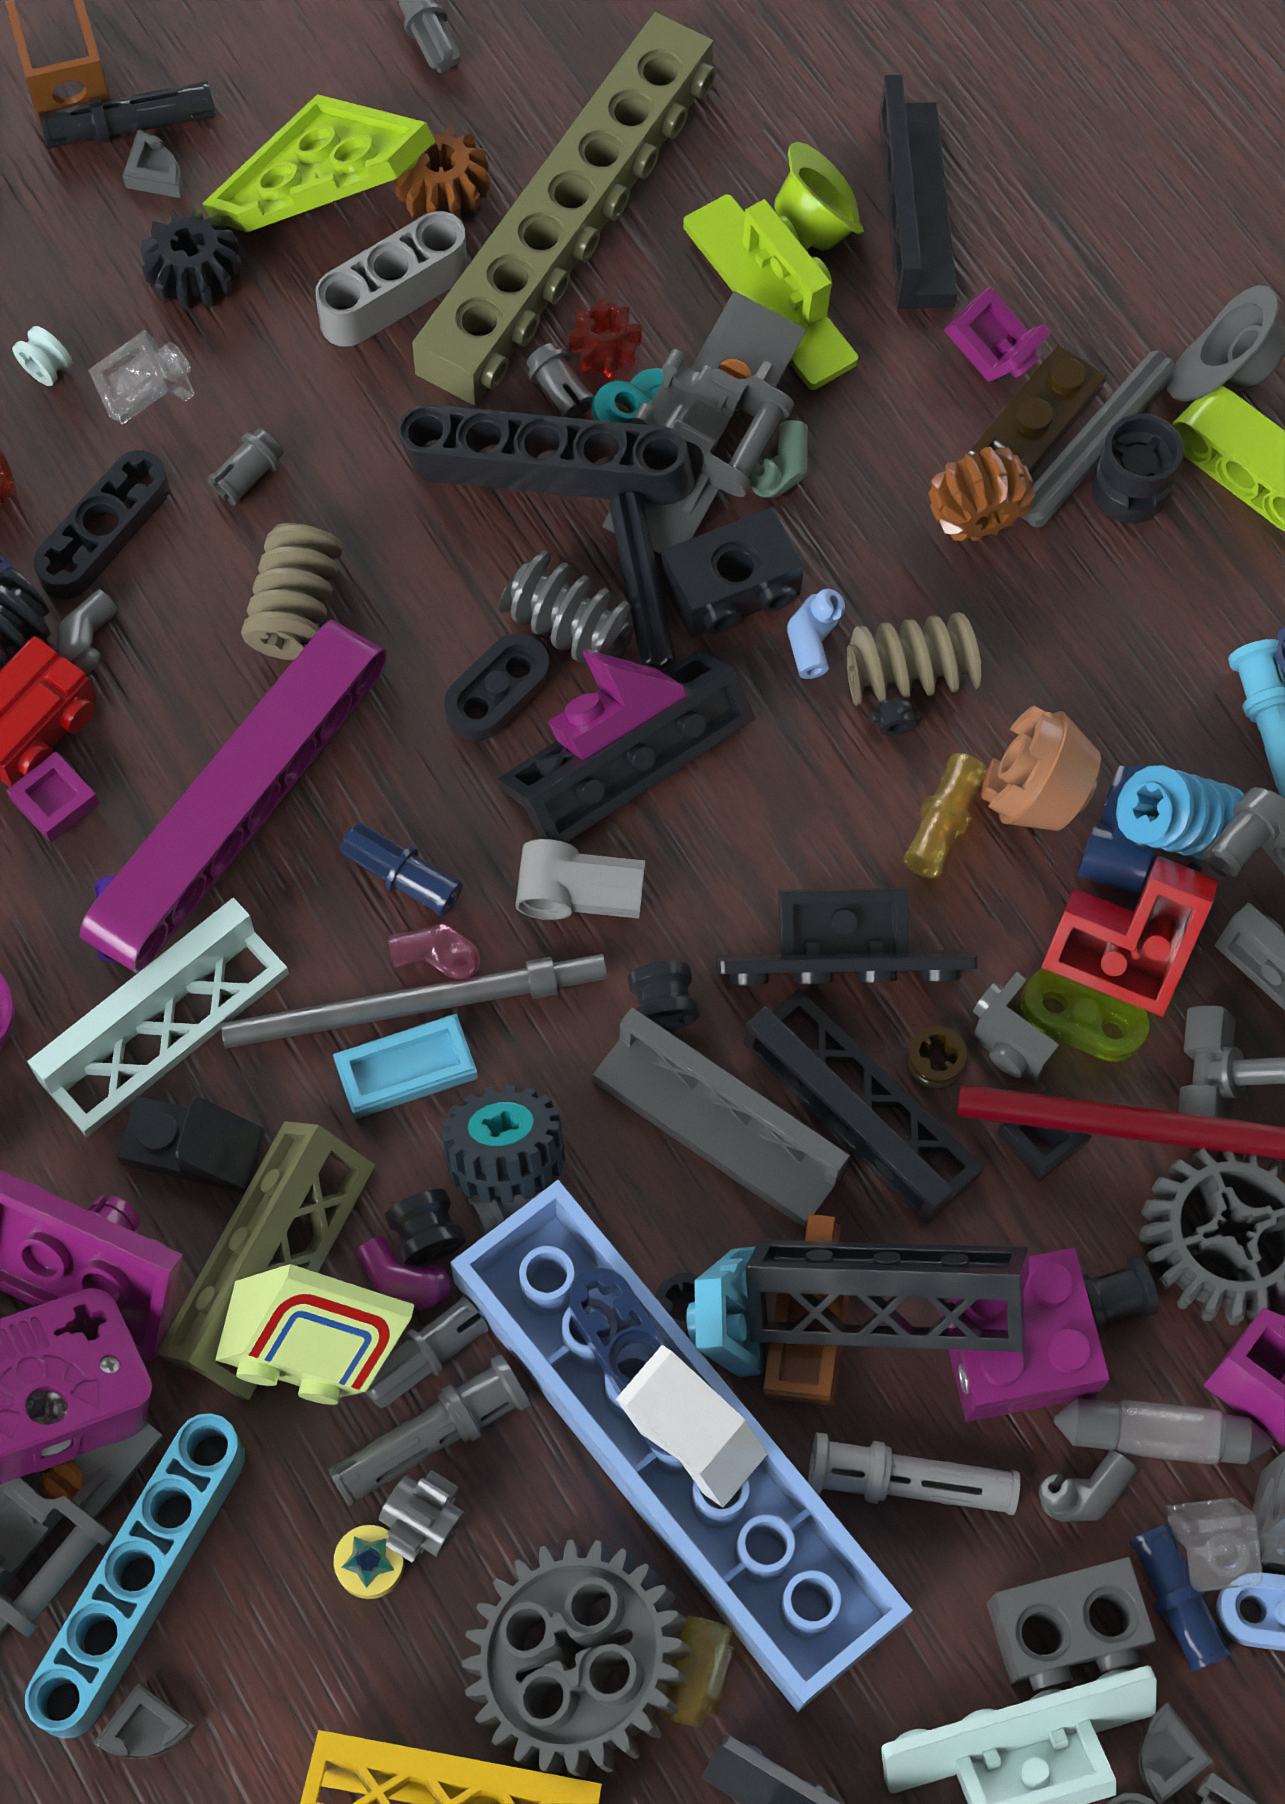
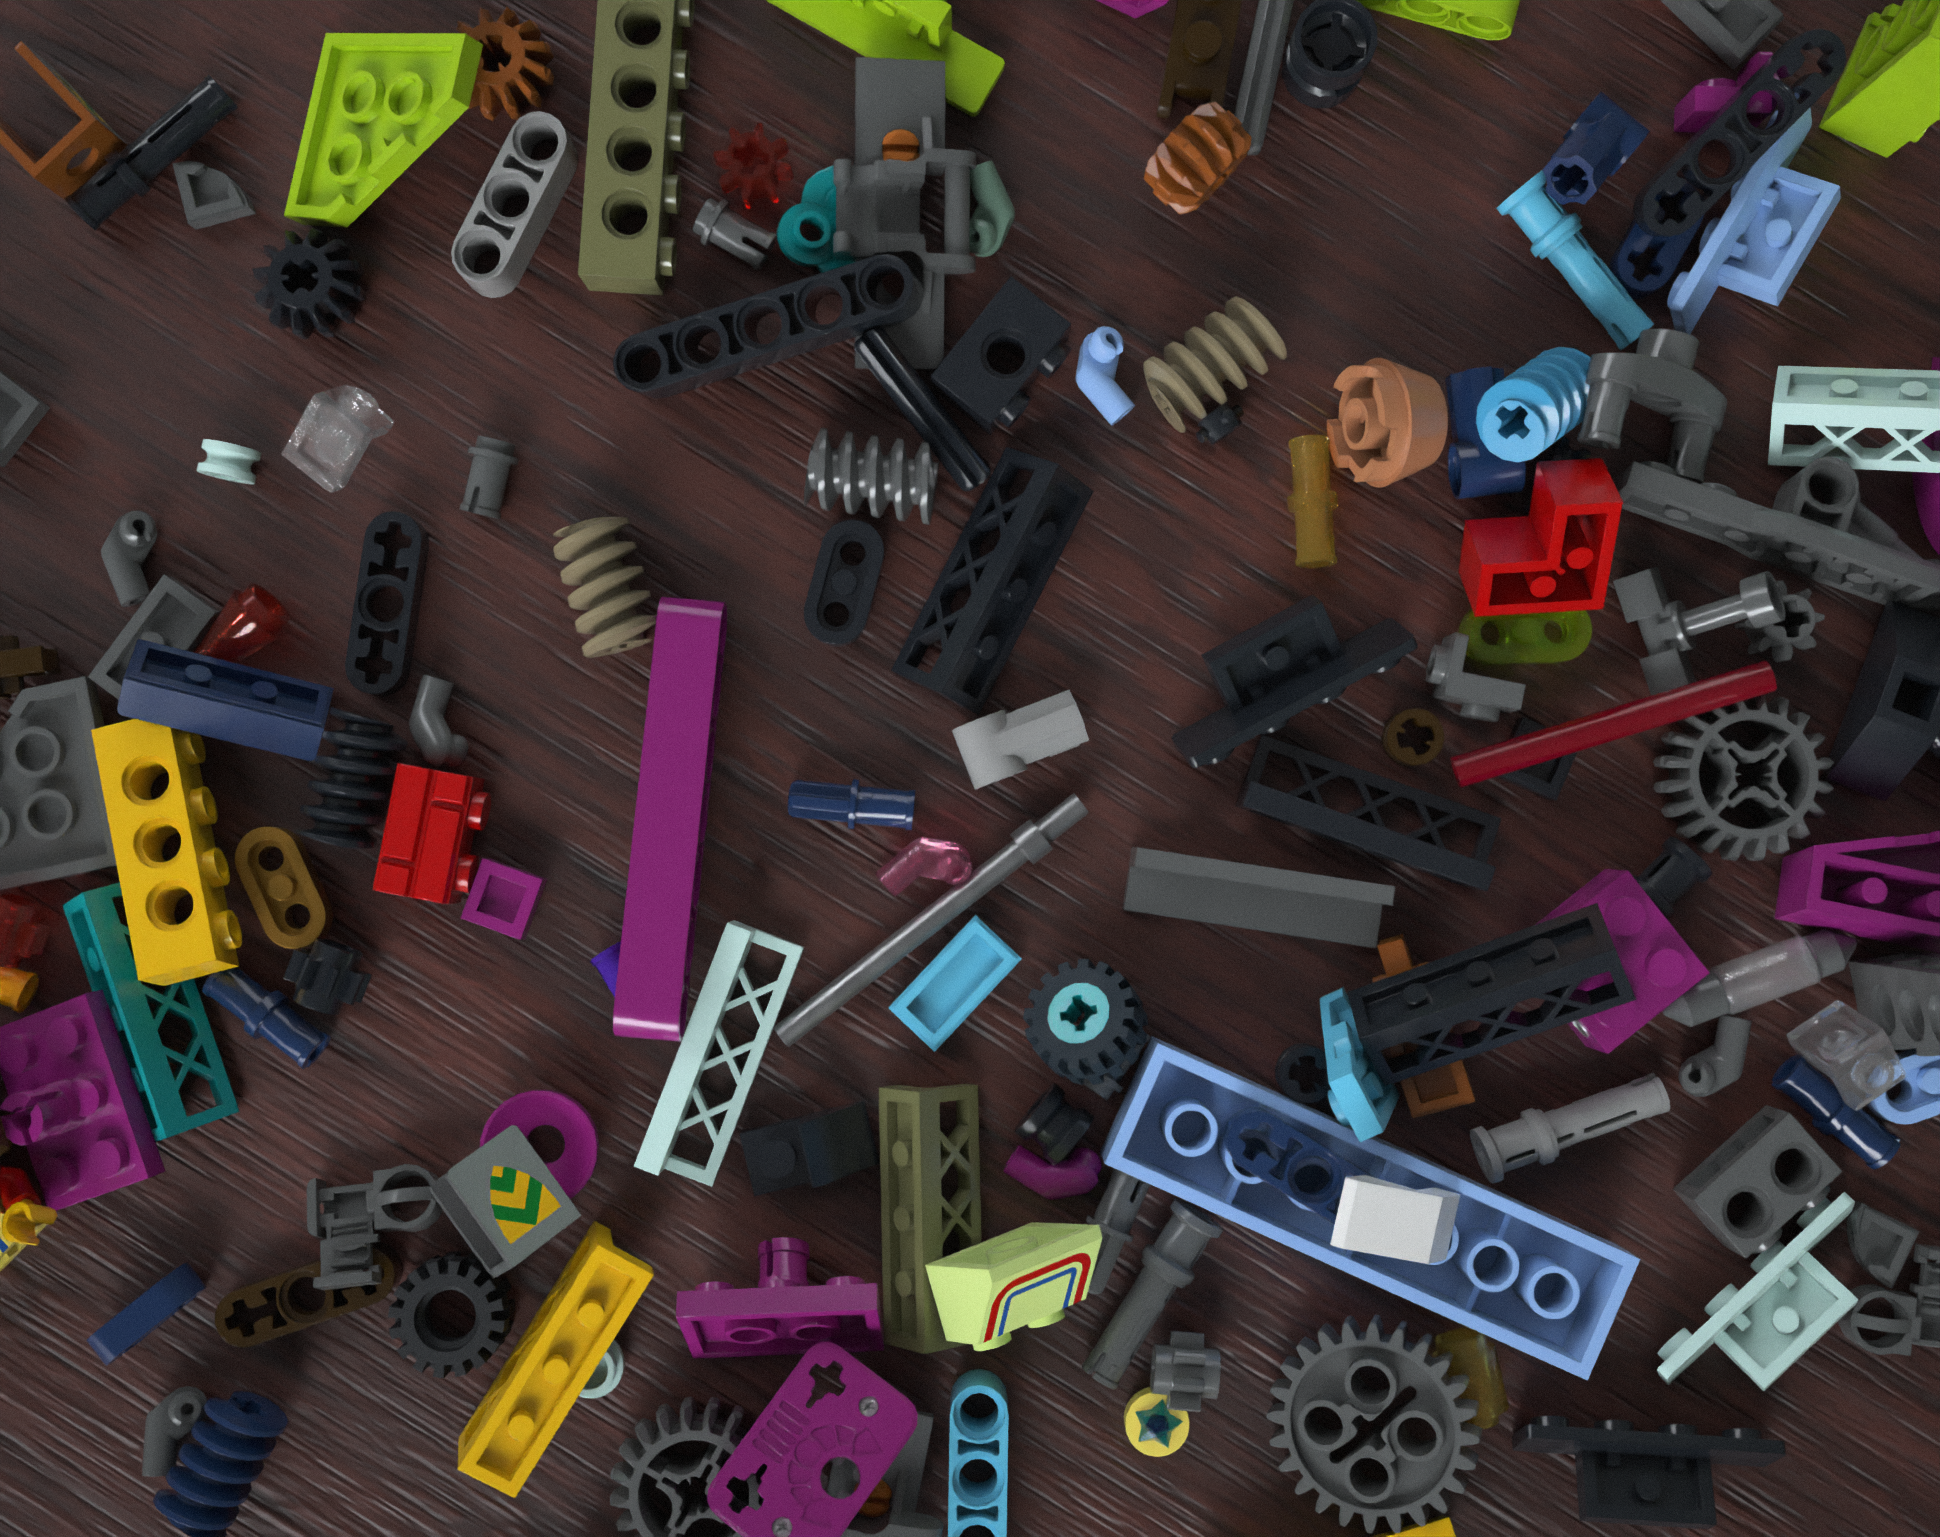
camera: 25 degrees left, 20 degrees up
(626, 699) = (973, 544): magenta slope -> none
(664, 993) = (1150, 808): black wheel -> none

